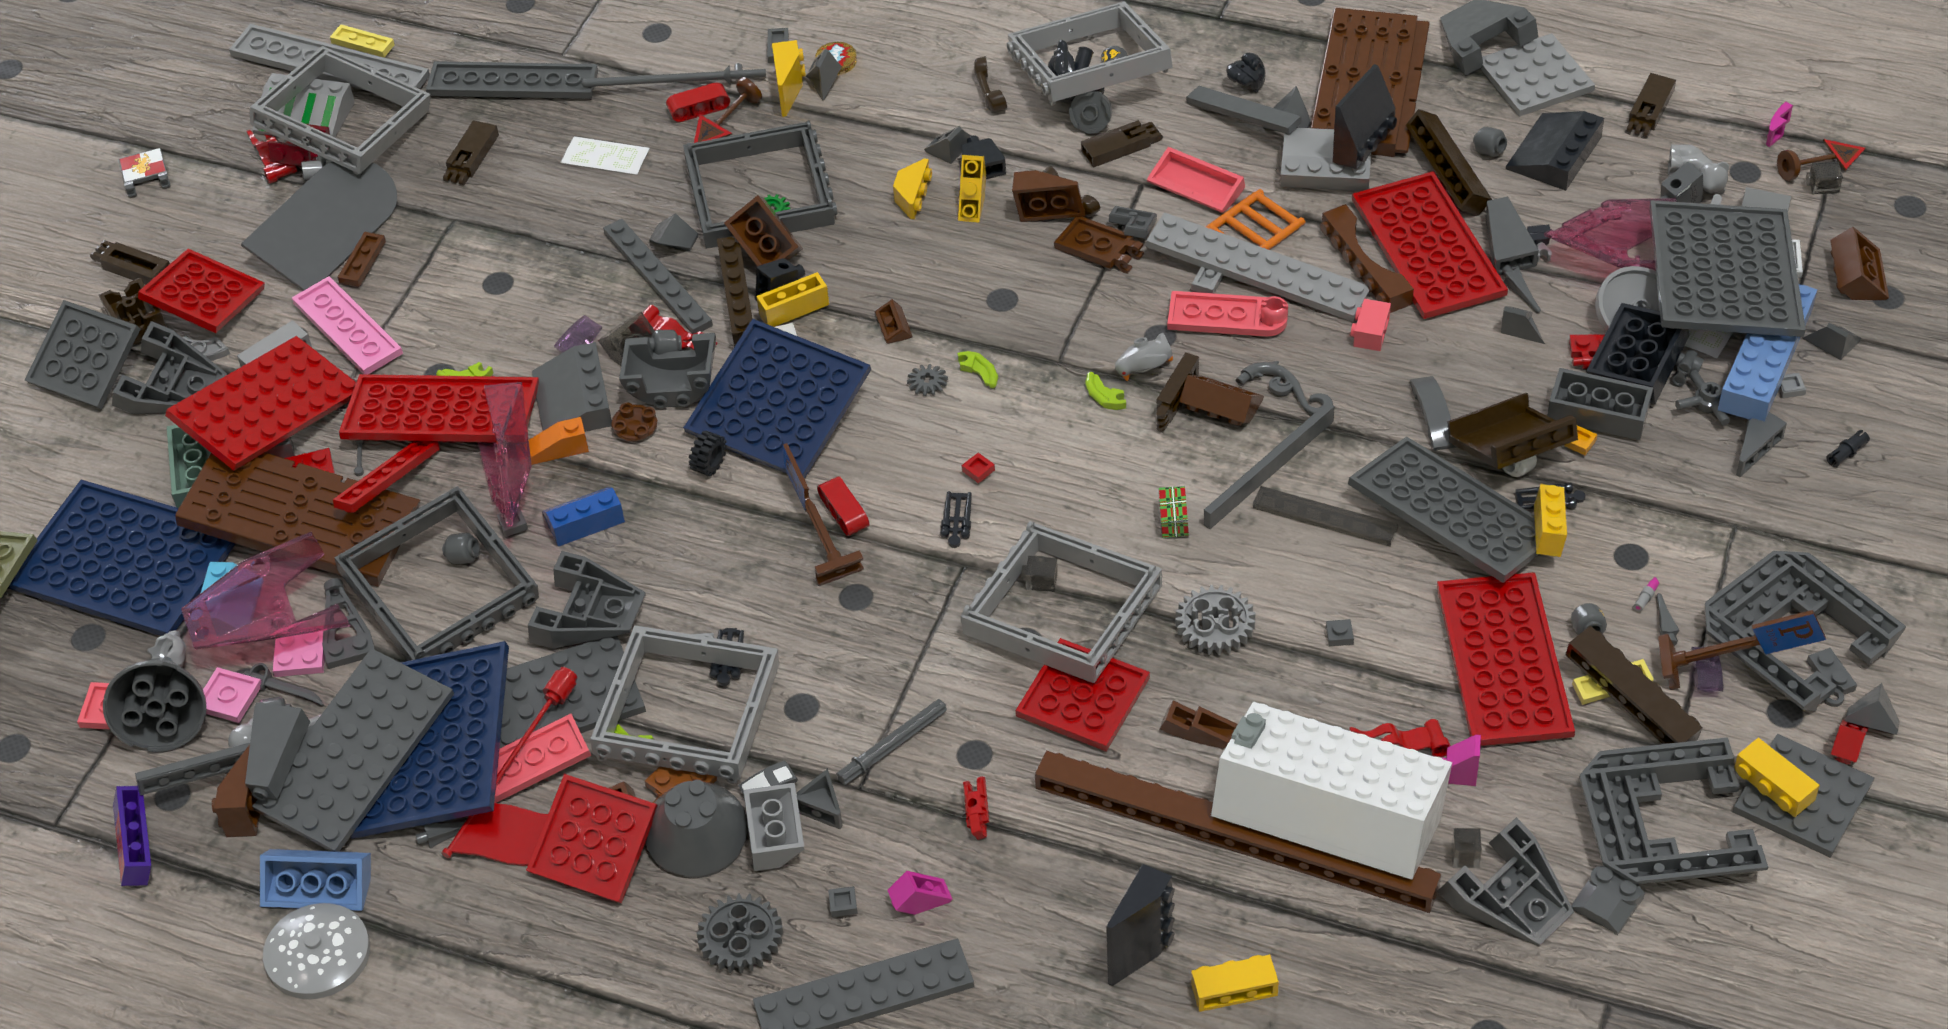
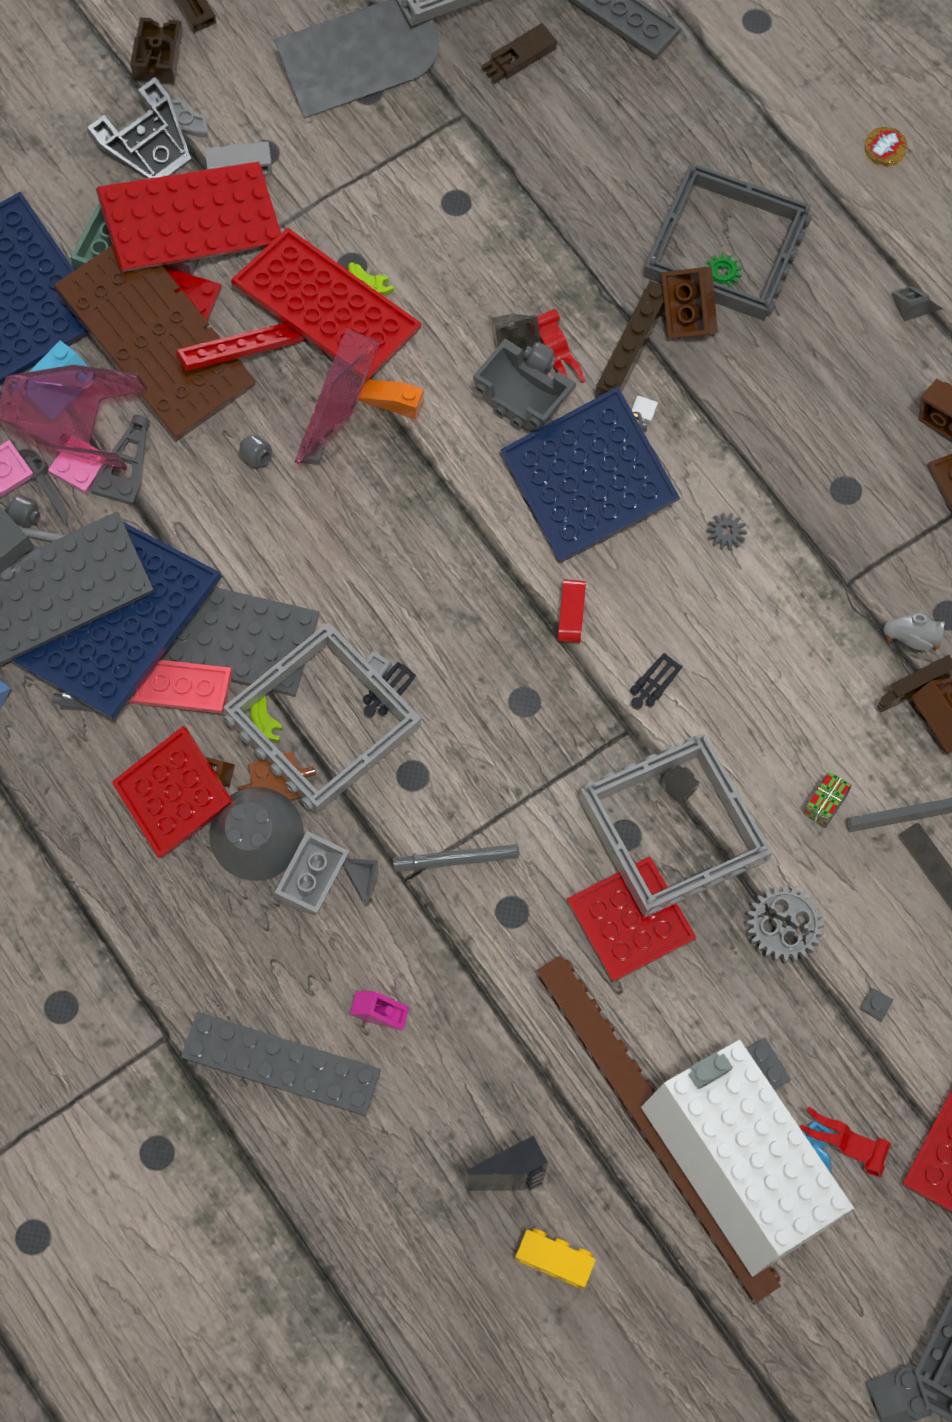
camera: 30 degrees right, 20 degrees up
(82, 354) = (91, 70): dark grey plate -> none
(201, 290) = (217, 65): red plate -> none
(347, 325) = (310, 171): bright pink plate -> none
(359, 470) = (231, 319): dark grey hinge -> none
(361, 259) = (364, 110): reddish brown plate -> none
(464, 630) = (209, 530): dark grey window -> none
(511, 831) = (126, 737): red flag -> none
(573, 388) = (440, 354): dark grey slope -> none
(580, 333) = (479, 302): clear purple slope -> none
(584, 516) = (368, 480): blue slope -> none
(597, 608) = (317, 581): dark grey wedge -> none
(605, 155) = (627, 126): white sticker -> none
(634, 422) = (467, 417): reddish brown dish -> none
(658, 276) = (584, 281): dark grey plate -> none
(674, 233) = (623, 248): dark grey slope -> none
(698, 102) = (737, 121): red beam -> none
(707, 453) = (499, 490): black tyre -> none
(709, 130) = (728, 159): reddish brown piece -> none
(725, 75) = (780, 107): dark grey piece -> none
(740, 933) = (230, 969): dark grey gear -> none
(773, 775) = (339, 828): slope -> none
(774, 36) = (845, 102): dark grey plate -> none
(776, 274) = (671, 355): black torso -> none
(788, 72) = (828, 142): yellow slope -> none
(793, 300) = (670, 382): yellow brick -> none
(823, 72) = (860, 159): dark grey slope -> none
(837, 565) = (527, 666): reddish brown piece -> none
(842, 901) = (319, 975): dark grey plate -> none
(893, 322) = (740, 455): reddish brown slope -> none
(911, 186) = (851, 326): yellow slope -> none
(972, 188) = (896, 365): yellow slope -> none
(976, 807) = (476, 963): red hinge -> none
(977, 363) = (779, 546): lime piece -> none
(978, 467) = (704, 647): red plate -> none
(994, 160) = (929, 336): black torso -> none
(1103, 395) = (857, 642): lime piece -> none
(1197, 726) = (700, 1015): reddish brown slope -> none
(1464, 761) = (876, 1197): dark pink slope -> none
(1466, 847) = (821, 1274): clear smoke brick -> none
(1520, 896) = (832, 1343): dark grey wedge -> none

